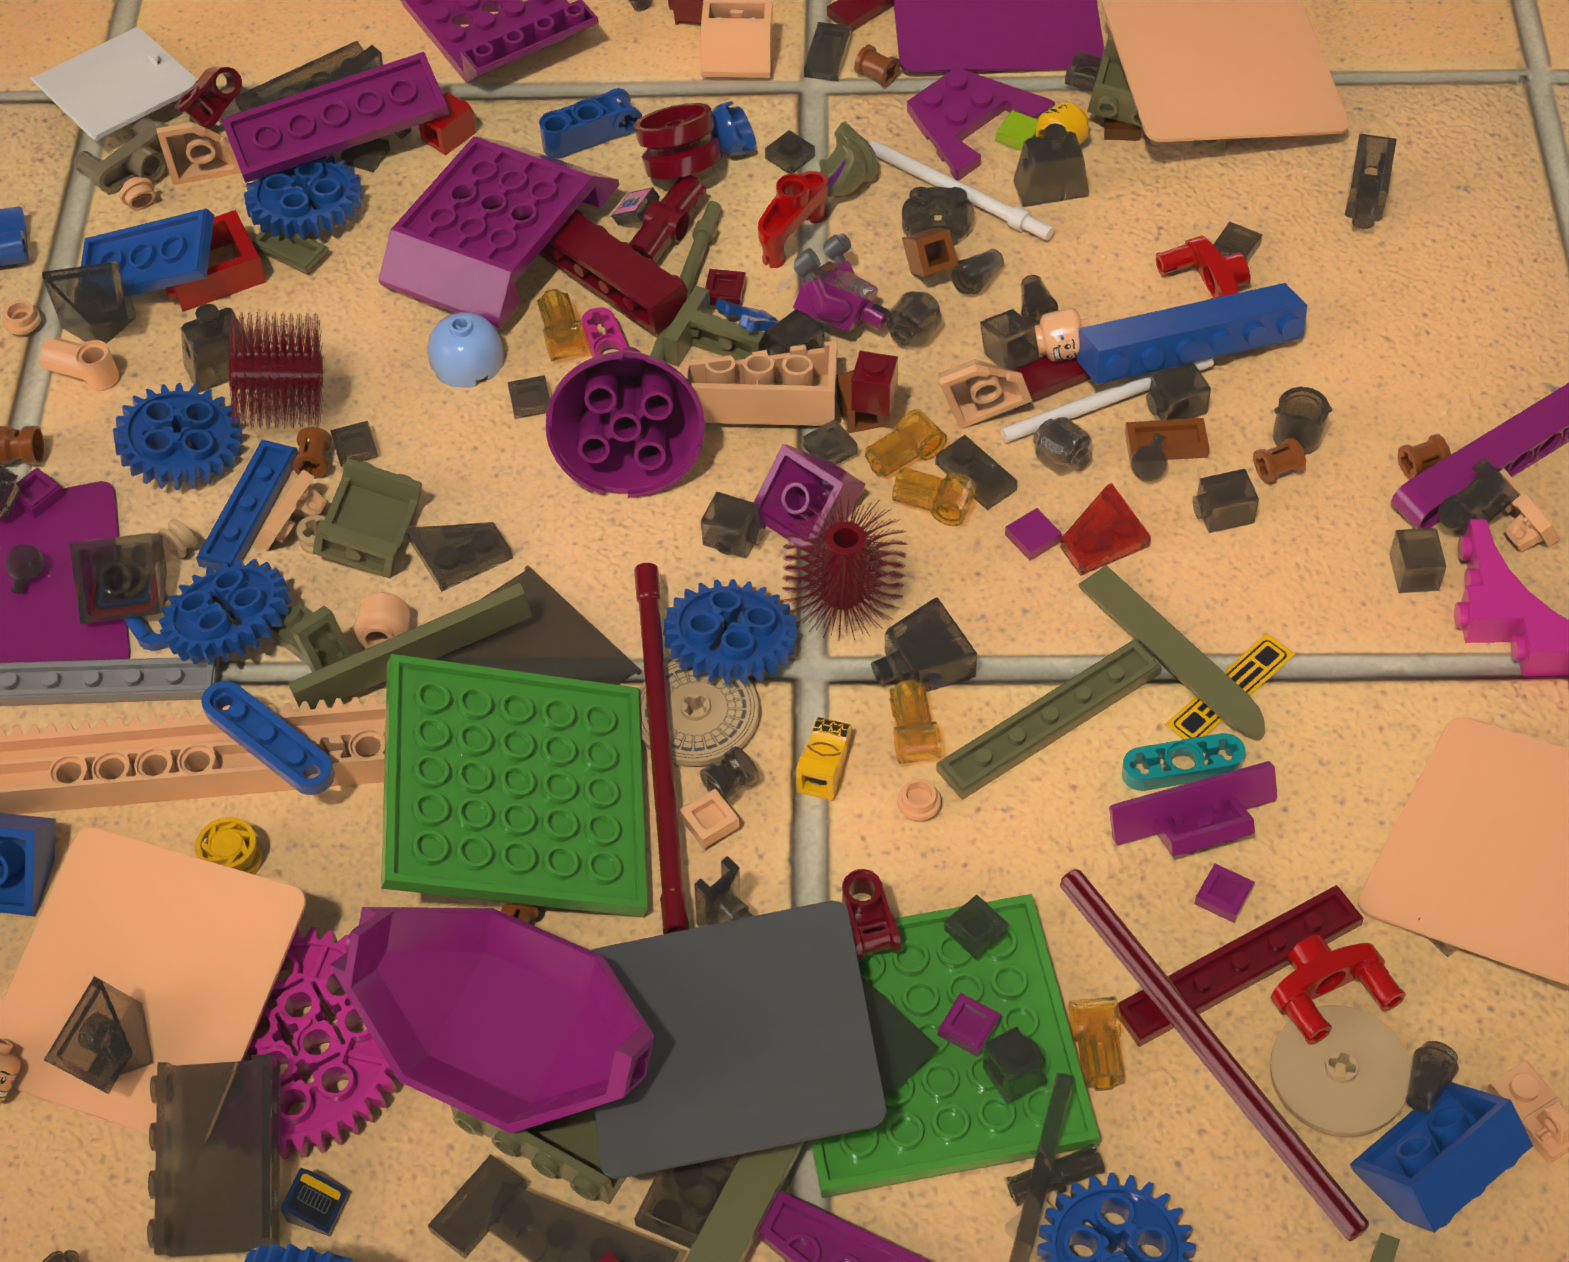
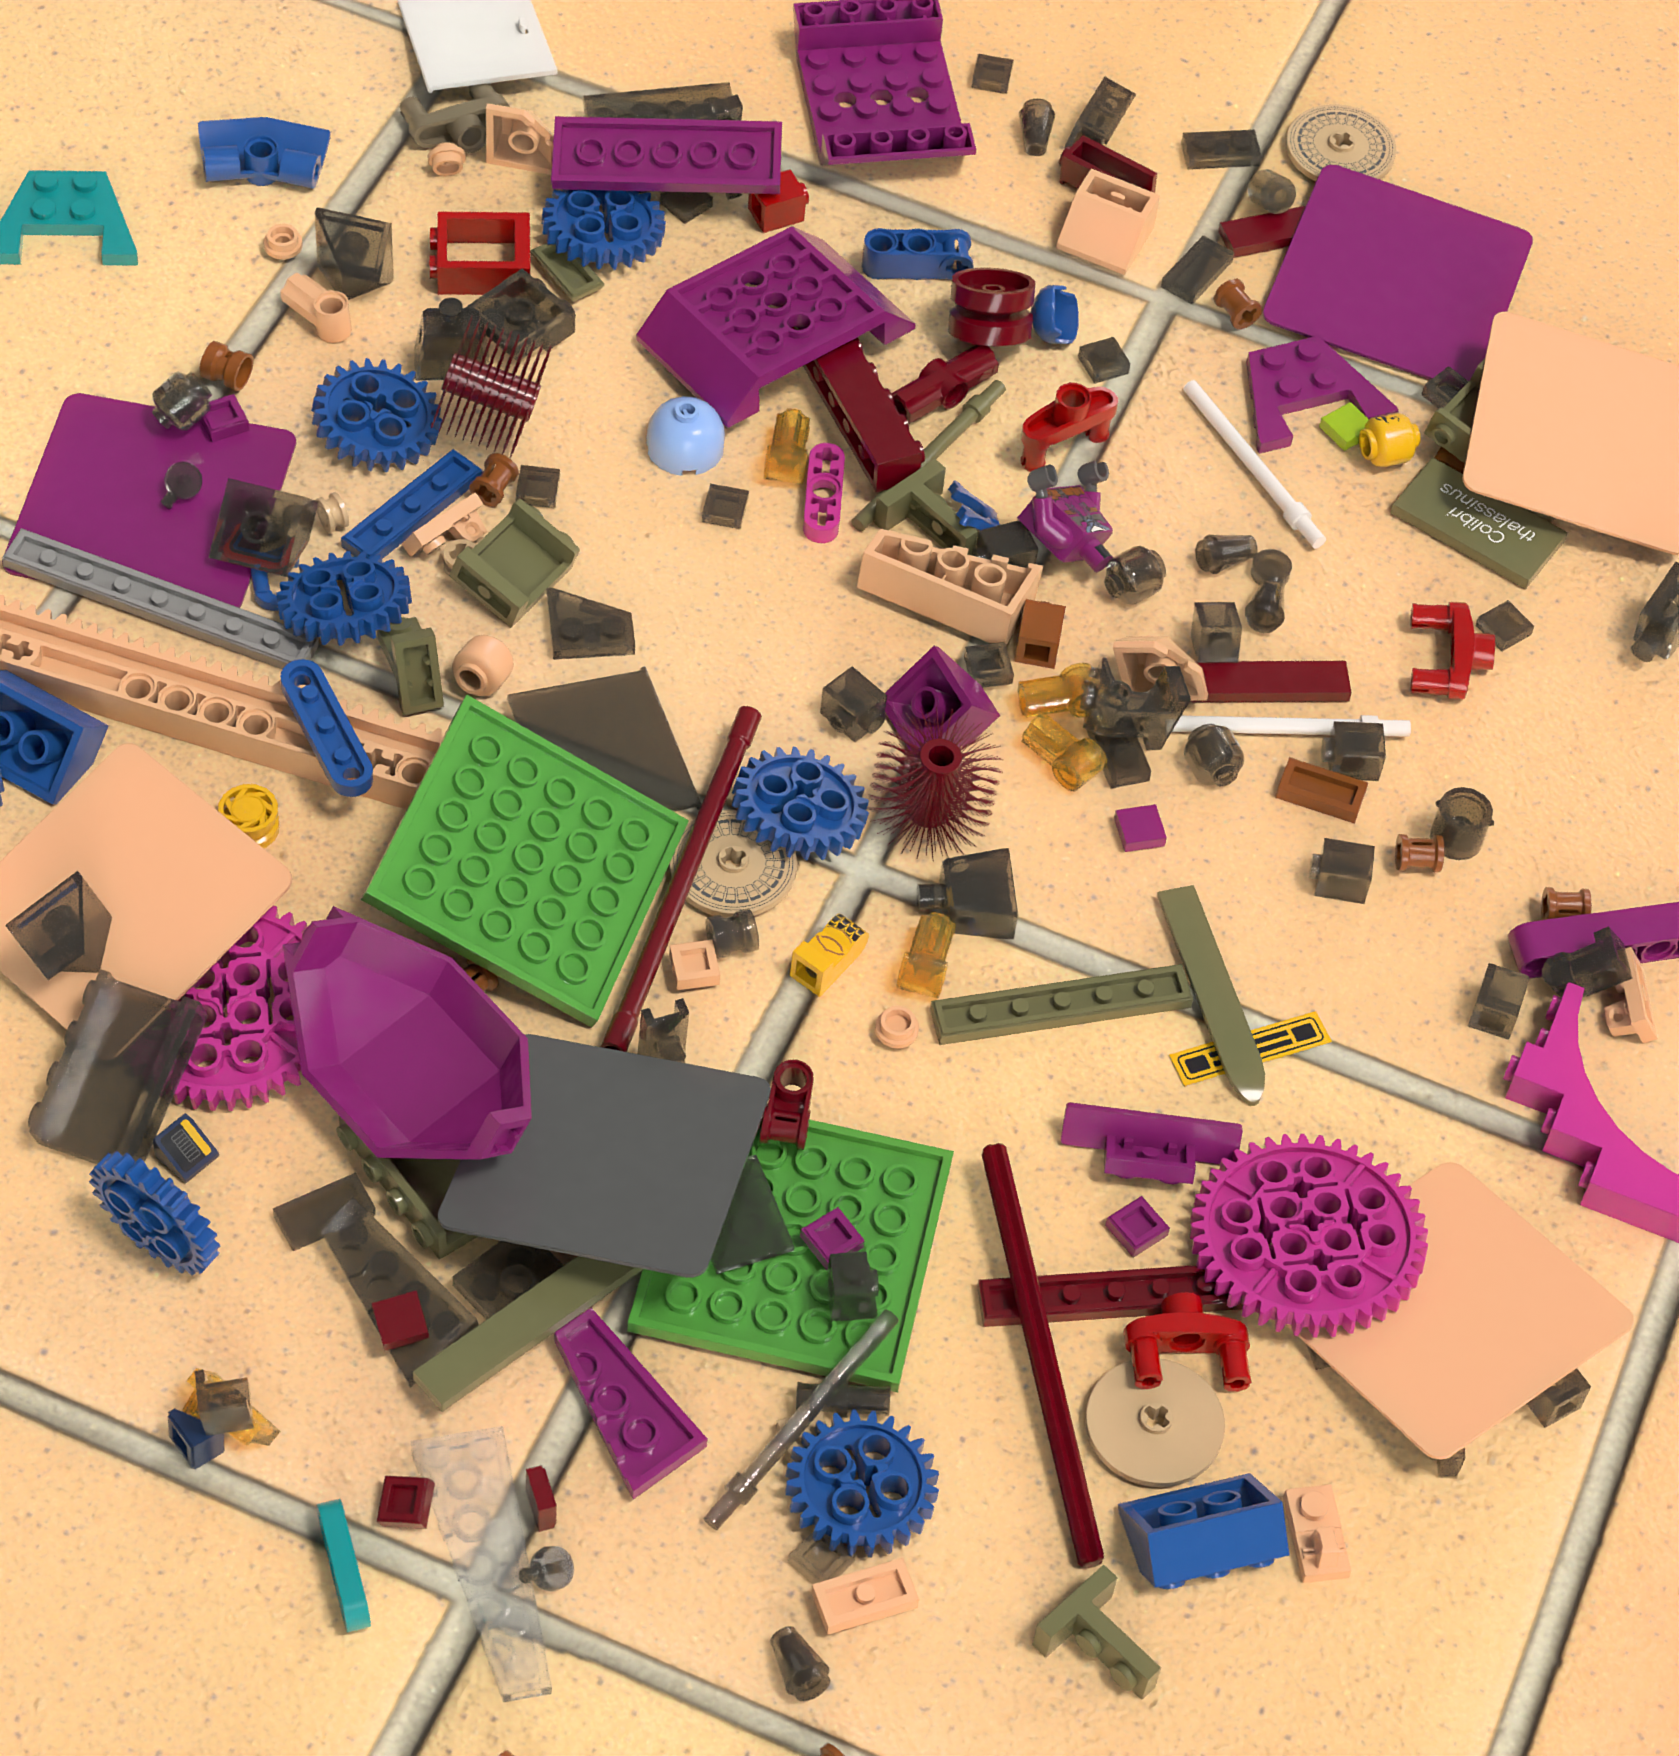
camera: 15 degrees right, 0 degrees up
(156, 252) = (434, 226): blue tile -> none
(205, 101) = (556, 87): dark red piece -> none
(272, 290) = (526, 309): none -> clear smoke plate
(425, 641) = (509, 698): olive tile -> none
(625, 424) = (793, 566): magenta cone -> none
(634, 206) = (919, 355): clear smoke tile -> none
(726, 286) = (969, 471): dark red tile -> none
(850, 162) = (1154, 395): olive hair -> none
(874, 383) = (1052, 621): dark red brick -> none
(930, 251) = (1185, 514): dark orange brick -> none
(950, 203) = (1219, 464): clear smoke plate -> none
(968, 438) = (1120, 712): none -> clear smoke tile
(976, 926) = (883, 1156): clear smoke plate -> none
(1018, 267) = (1271, 563): none -> clear smoke tile
(1051, 168) = (1353, 477): clear smoke torso -> none
(1059, 334) = (1269, 647): light nougat head -> none
(1098, 1029) = (947, 1295): clear yellow piece -> none
(1104, 533) = (1209, 854): clear red wing -> none
(1149, 461) = (1290, 803): clear smoke piece -> none
(1169, 169) = (1478, 526): none -> olive tile
(1172, 776) = (1153, 1078): teal beam -> none
(1191, 333) = (1399, 695): blue brick -> none
(1389, 782) = (1286, 1196): none -> dark pink gear
(1431, 1073) = (1233, 1458): clear smoke cone -> none

